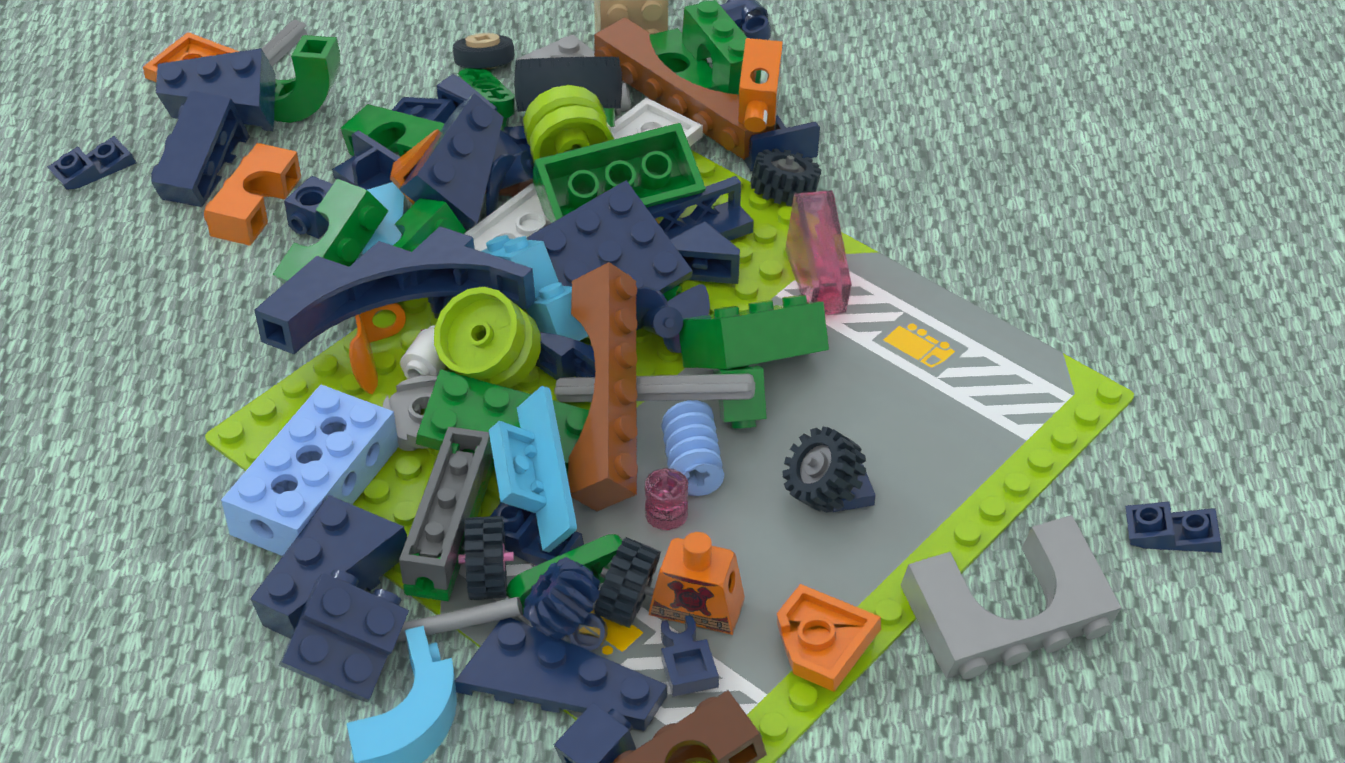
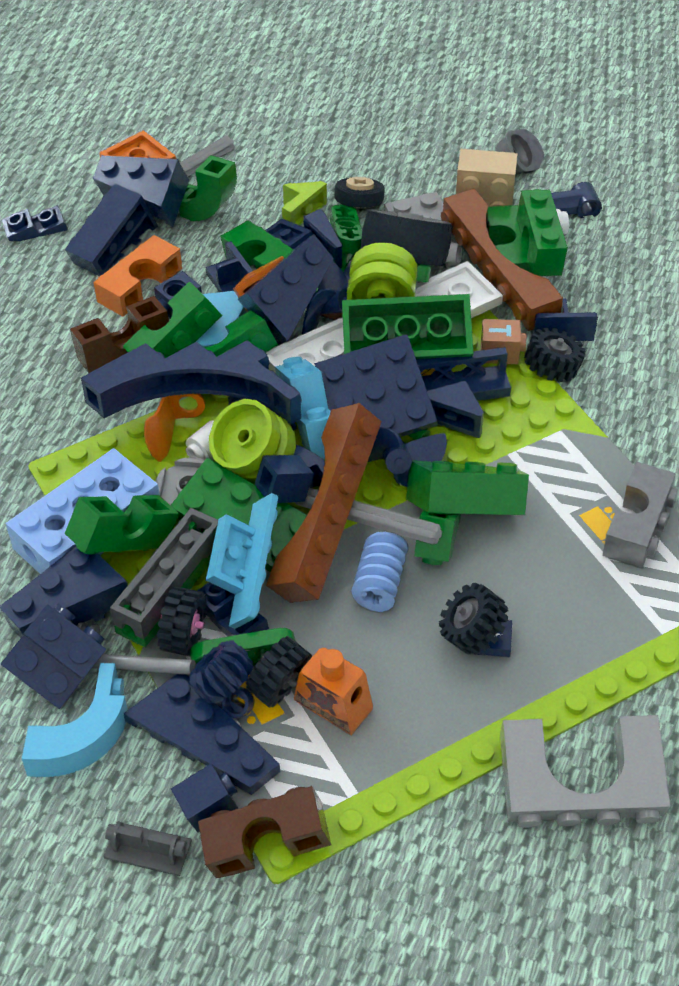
camera: 20 degrees right, 5 degrees up
(240, 280) = (98, 346): none -> reddish brown arch
(361, 470) = (104, 527): none -> green arch
(419, 71) = (302, 199): none -> lime slope
(545, 366) = (285, 477): none -> dark blue brick
(666, 499) = (342, 608): clear pink wheel -> none
(687, 661) = (303, 748): dark blue plate -> none
(723, 164) = (503, 333): none -> nougat brick
(757, 28) = (588, 218): dark blue hinge -> none
(760, 101) = (547, 284): orange torso -> none
(818, 251) = (548, 430): clear pink slope -> none
(824, 635) = (417, 759): orange plate -> none
(955, 321) = (633, 534): none -> flat silver arch

